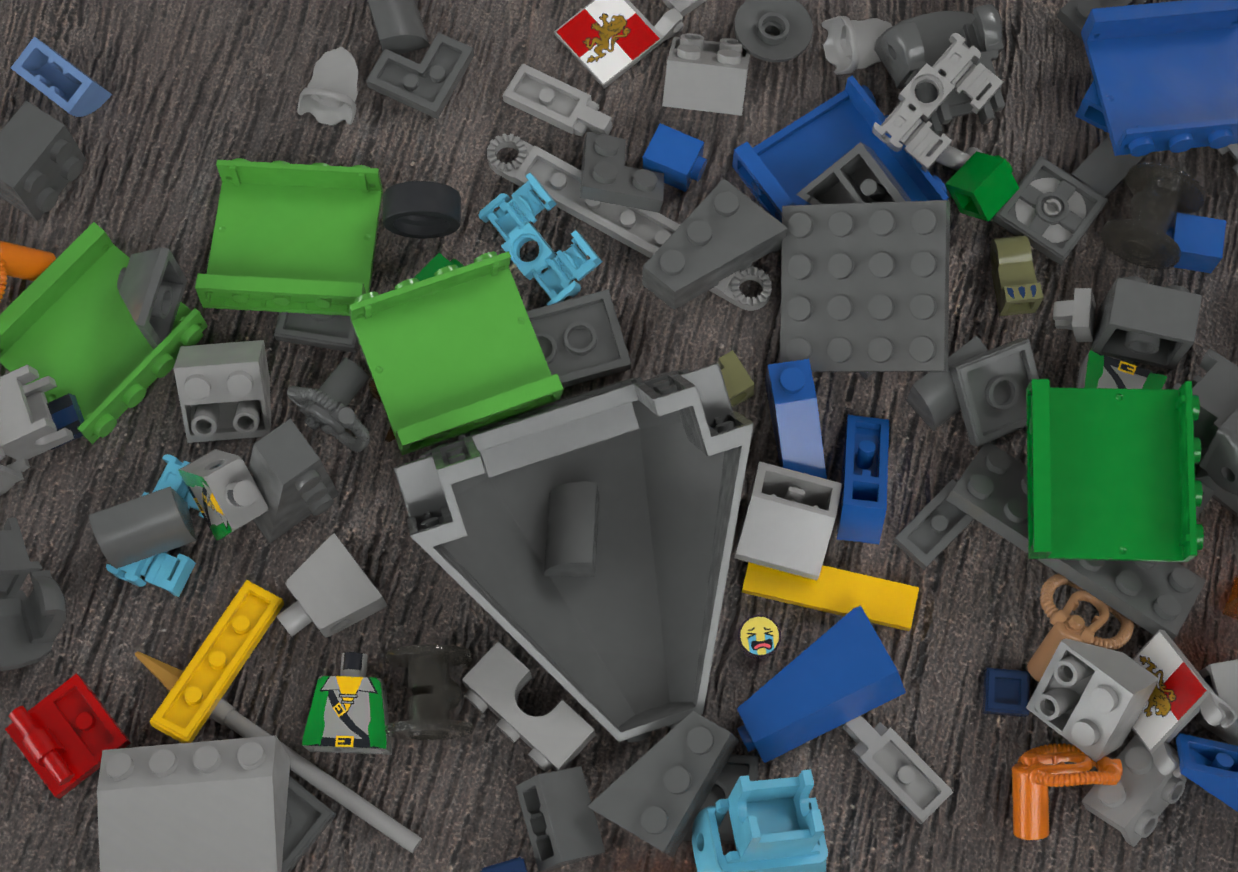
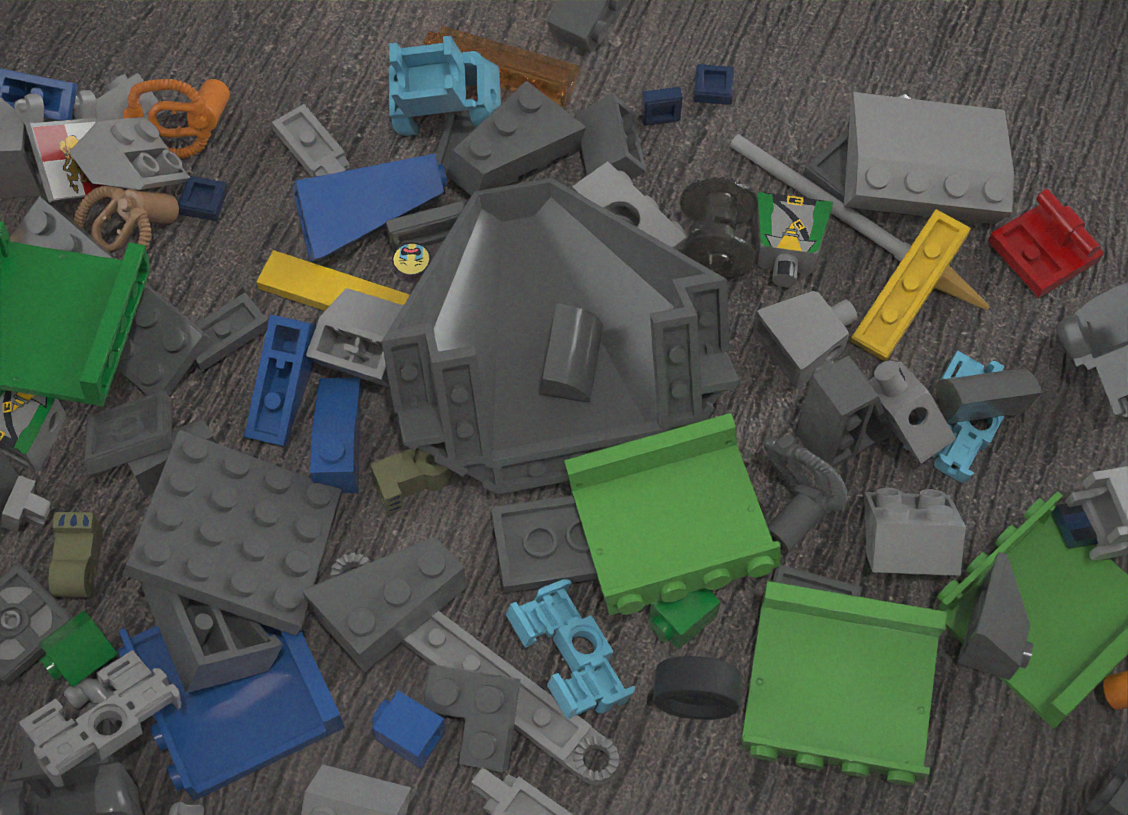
camera: 175 degrees left, 10 degrees down
(748, 673) = (423, 227): none -> dark grey tile

